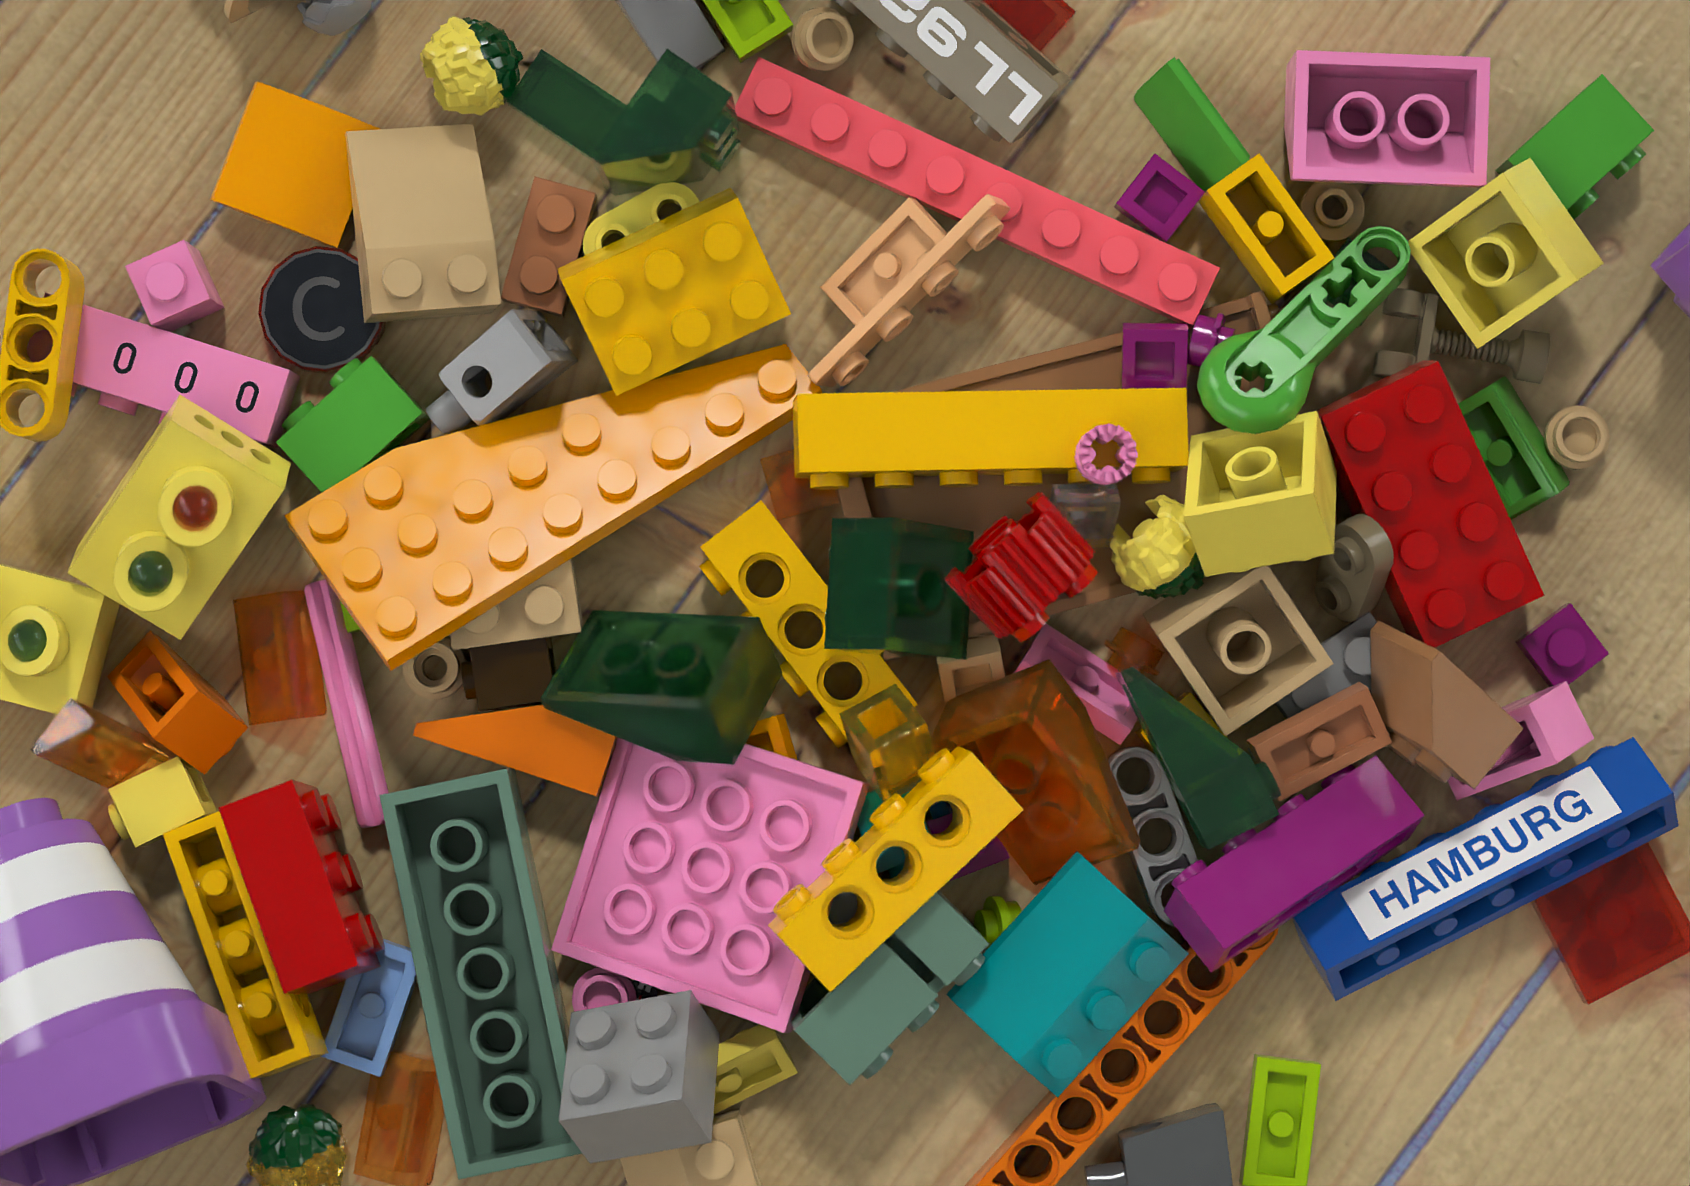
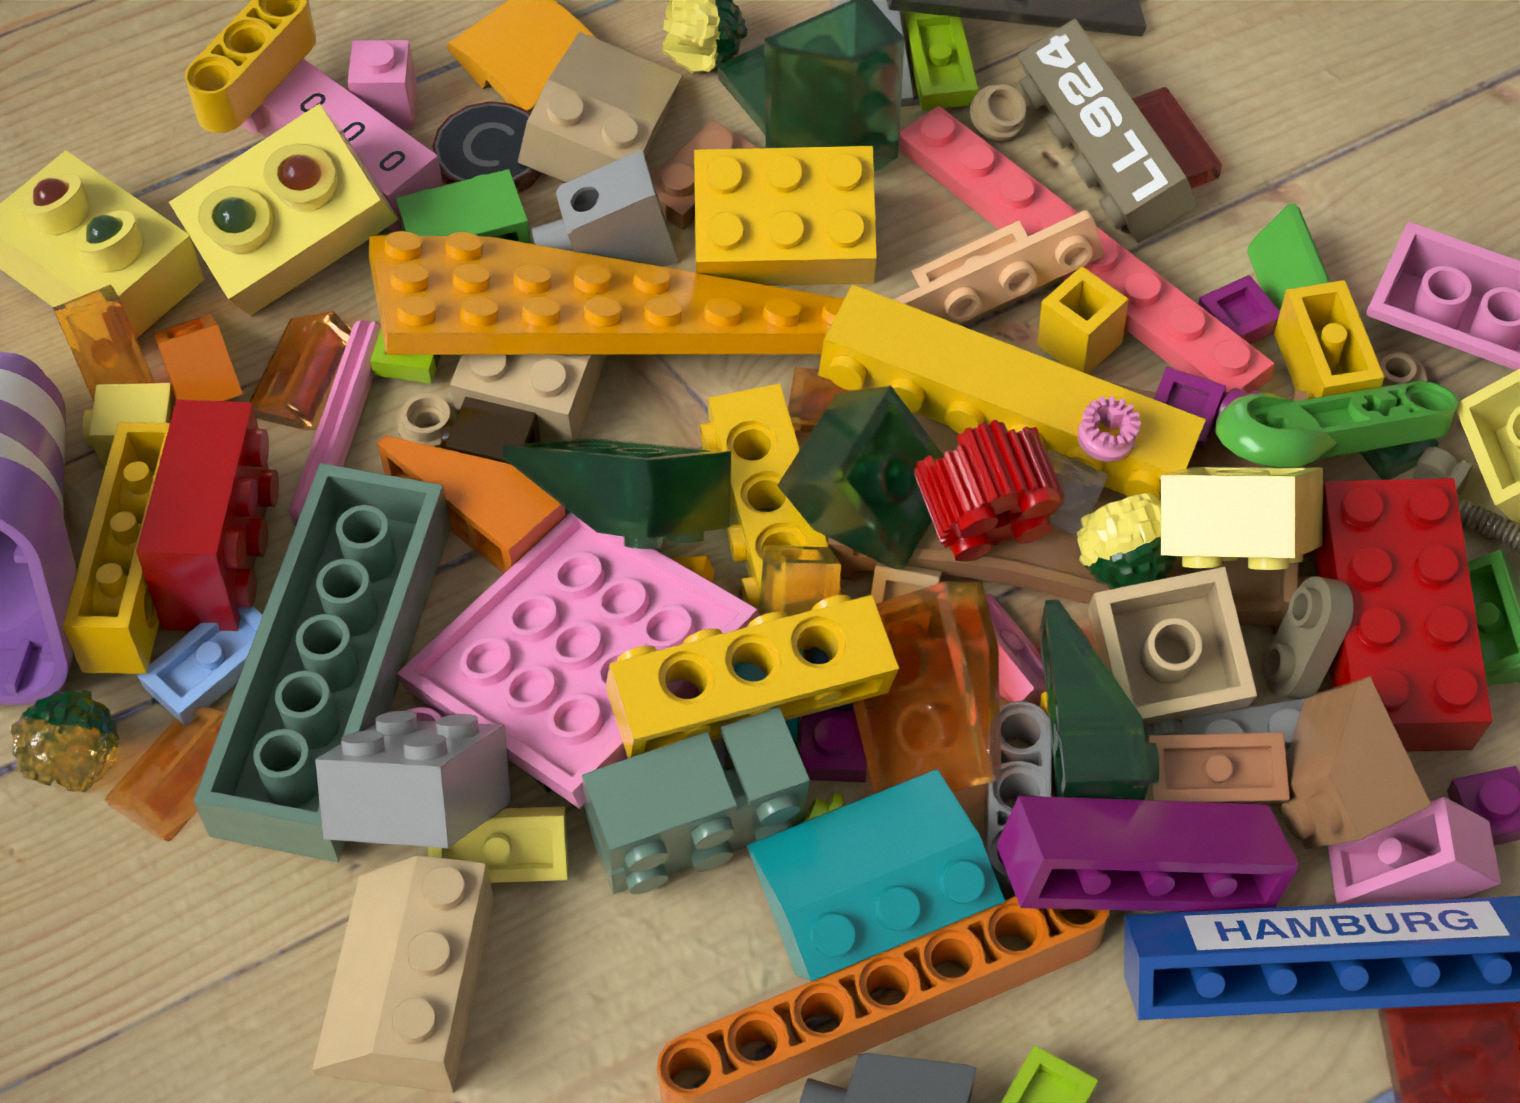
camera: 25 degrees right, 30 degrees down
(1017, 291) = (1082, 321): none -> yellow brick

